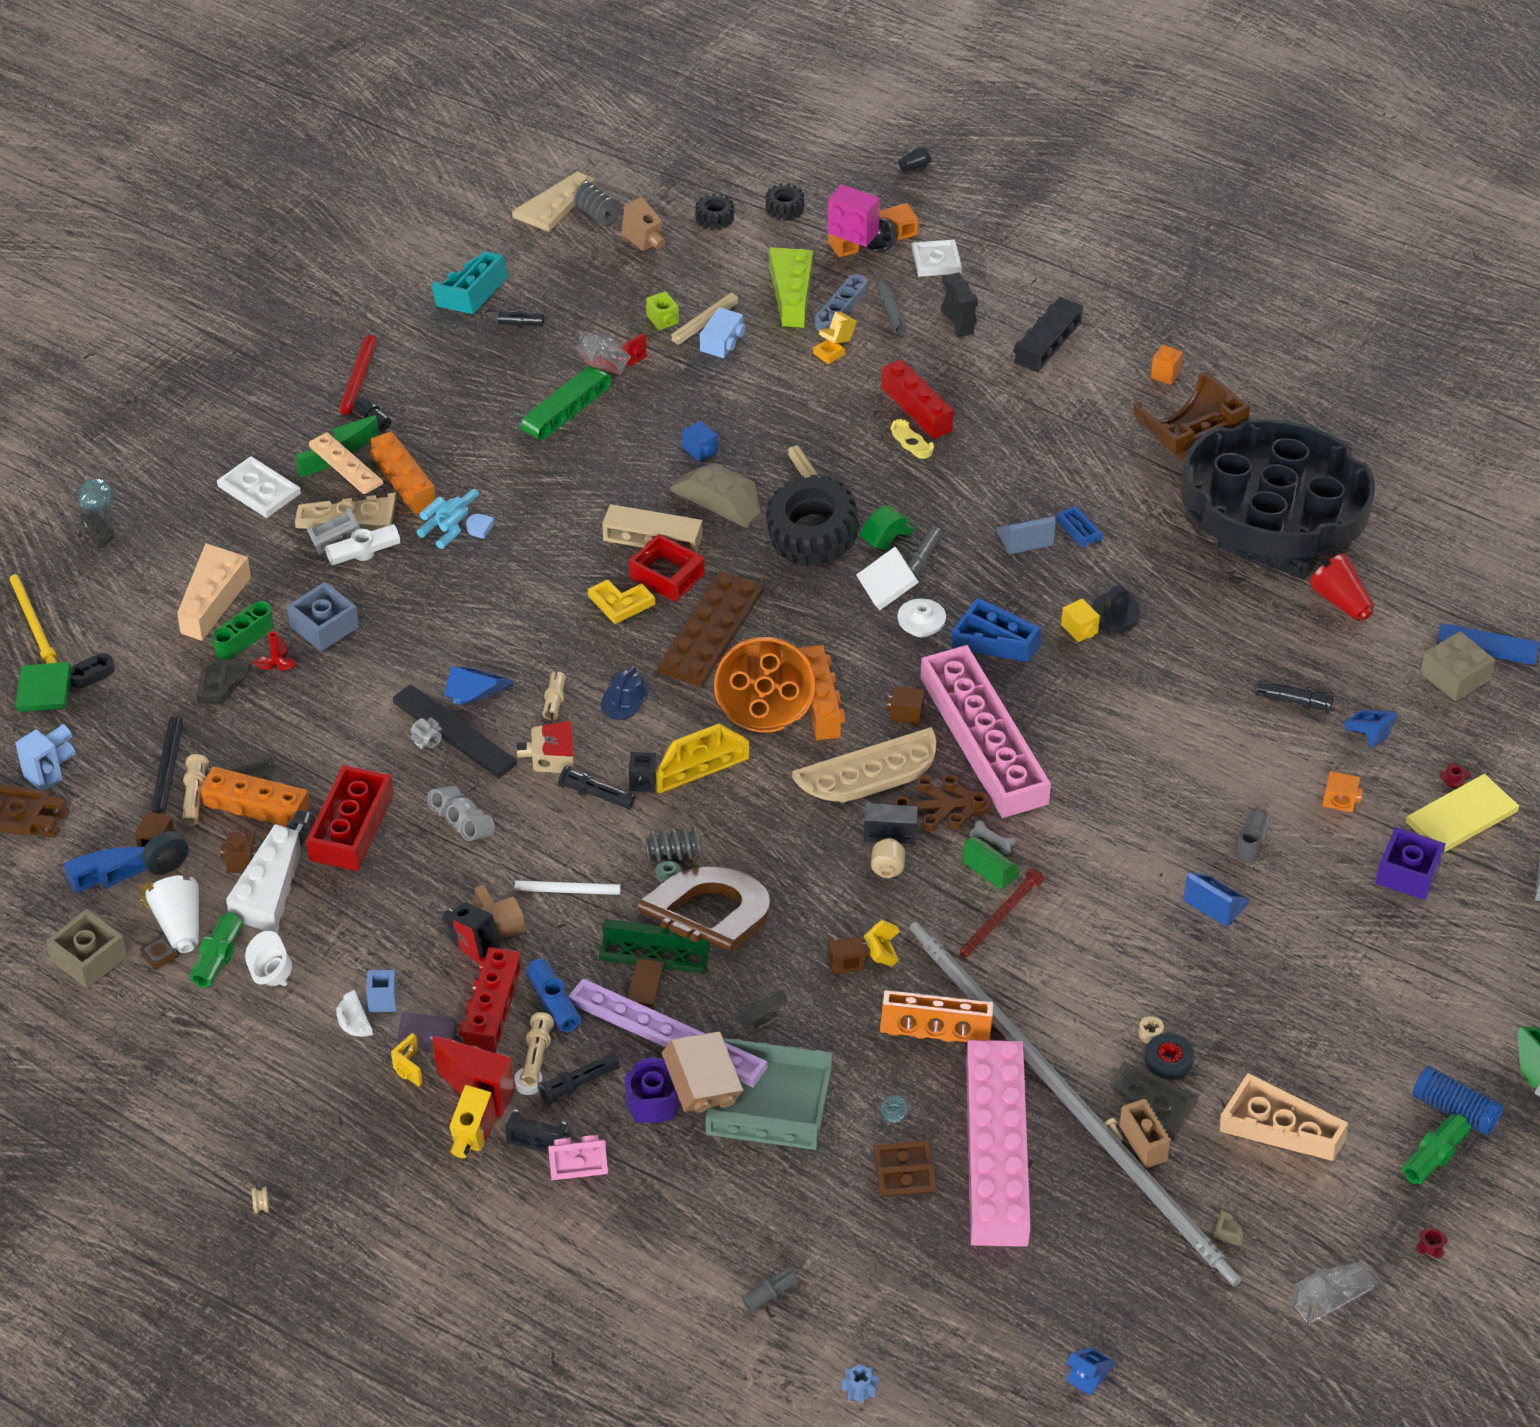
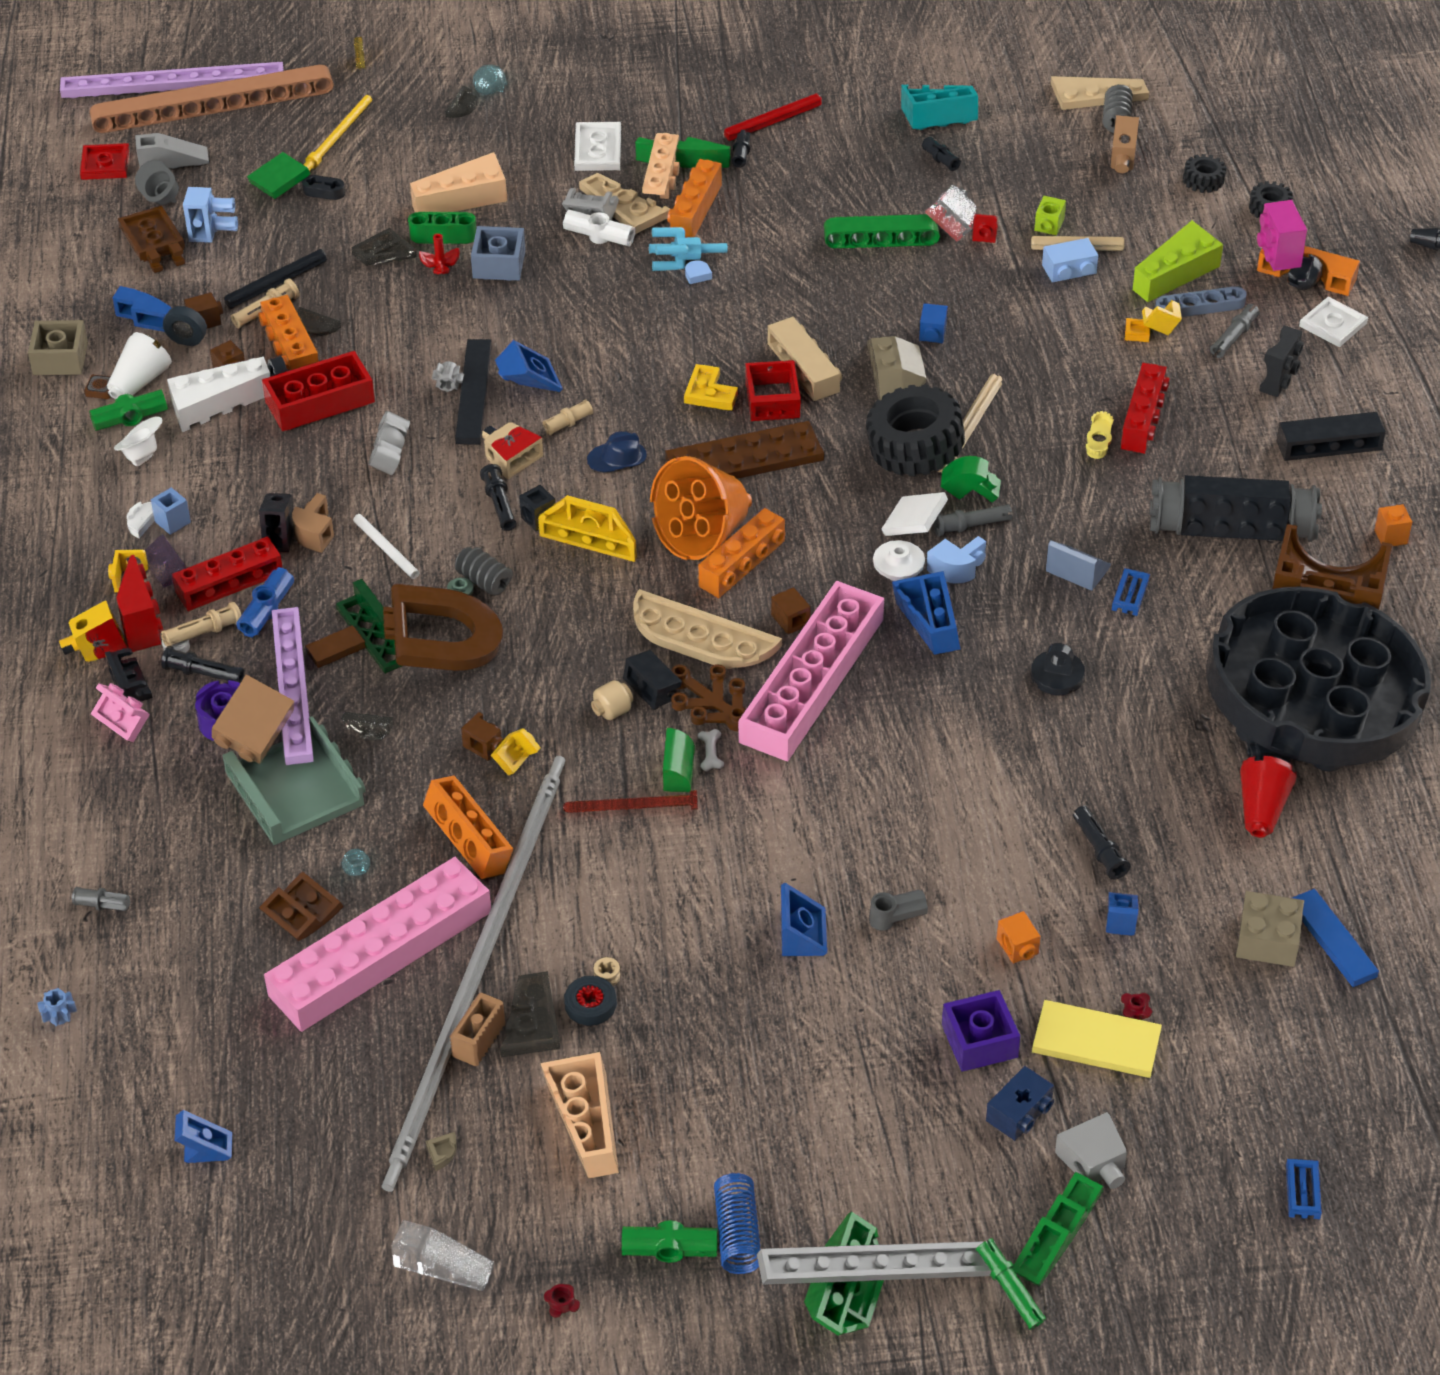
camera: 50 degrees right, 0 degrees up
(957, 591) = (957, 563): none -> light blue brick
(1073, 422) = (1234, 508): none -> black brick
(1080, 620) = (1015, 654): yellow brick -> none
(1486, 887) = (1020, 1103): none -> dark blue brick

